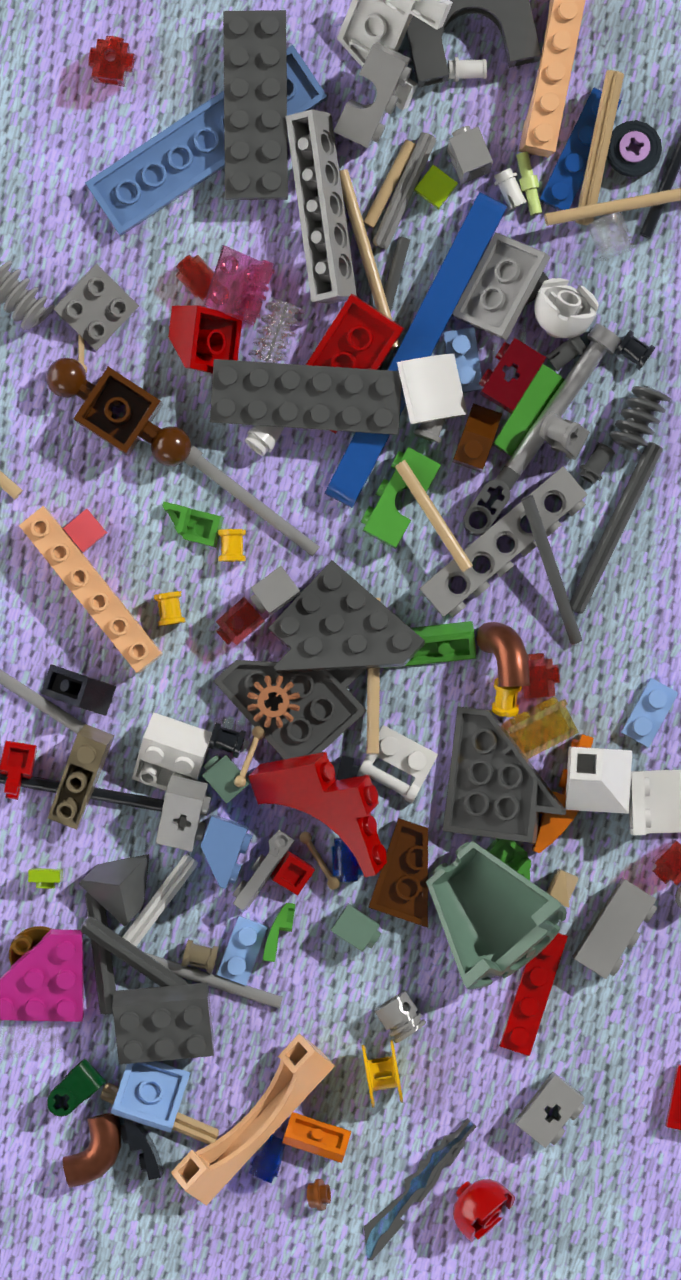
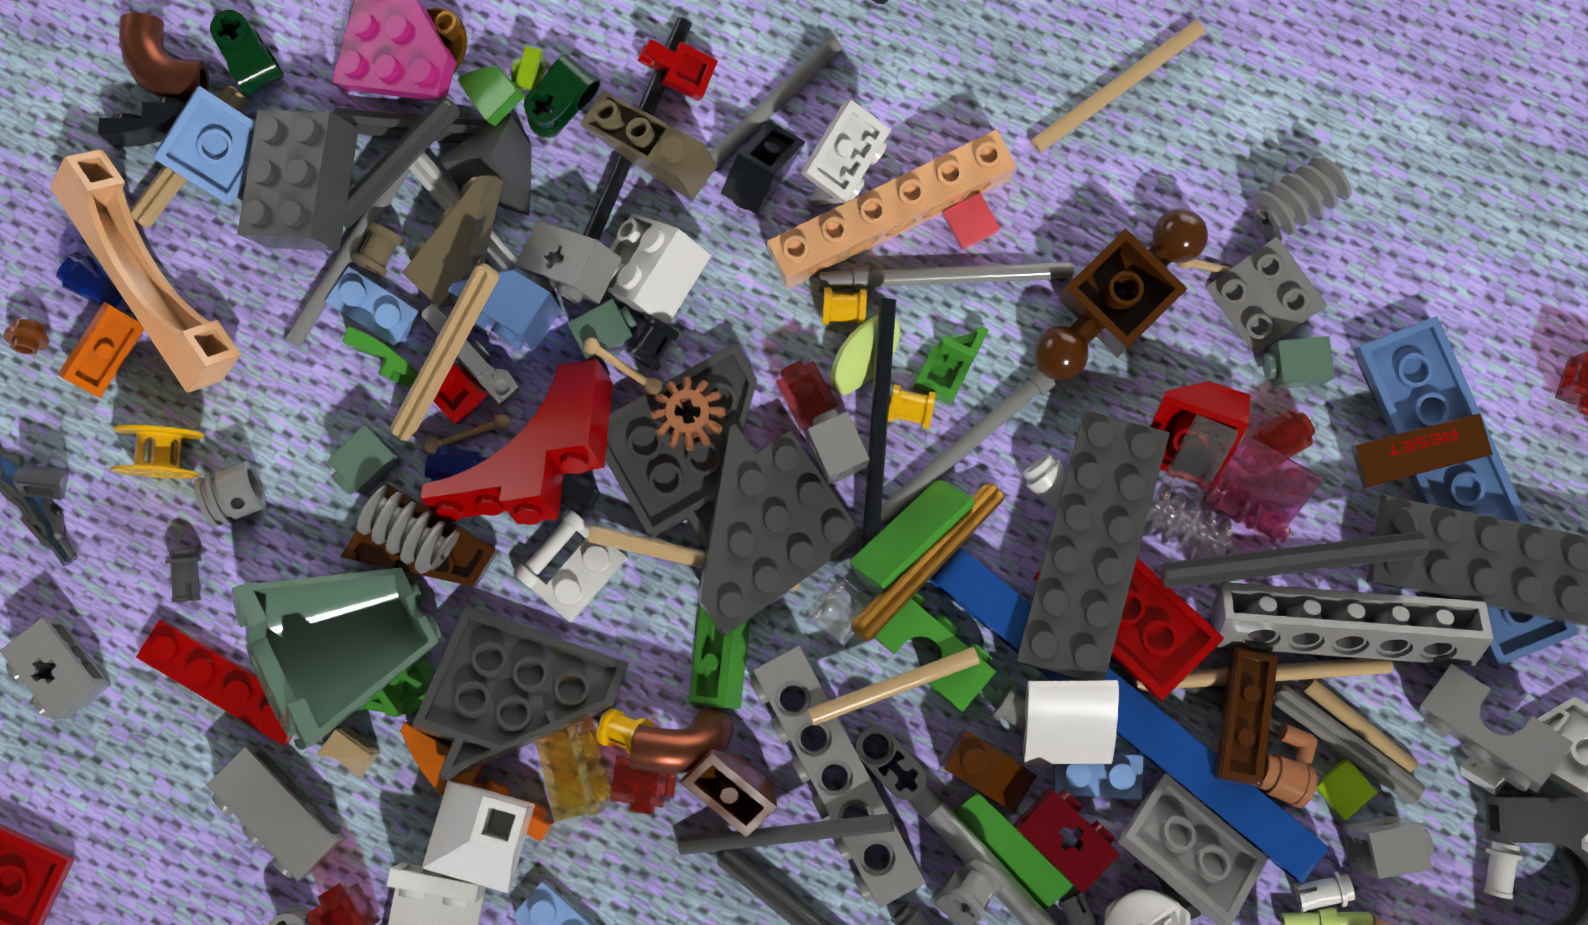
camera: 100 degrees right, 5 degrees down
(52, 848) = (565, 91): none -> dark green piece
(64, 629) = (844, 154): none -> white bracket
(67, 899) = (491, 92): none -> bright green slope
(140, 275) = (1299, 362): none -> sand green brick
(144, 599) = (864, 278): none -> light grey bar
(186, 178) = (1421, 450): none -> reddish brown tile
(191, 895) = (458, 241): none -> dark tan slope
(200, 586) = (856, 357): none -> yellowish green arm
(226, 333) = (1199, 457): none -> clear tile
(253, 565) = (879, 419): none -> black piece
(268, 883) = (444, 351): none -> tan axle
(285, 255) = (1294, 559): none -> dark grey axle
(324, 526) = (910, 534): none -> bright green slope
(341, 510) = (897, 595): none -> pearl gold axle
(388, 565) = (838, 609): none -> clear piece
(400, 880) = (405, 532): none -> light grey piece
(401, 267) = (1246, 717): none -> reddish brown tile
(420, 1155) = (41, 481): none -> dark grey slope
(437, 230) = (1292, 779): none -> nougat piece
(464, 1036) = (184, 575): none -> dark grey pin
(529, 612) = (732, 789): none -> slope

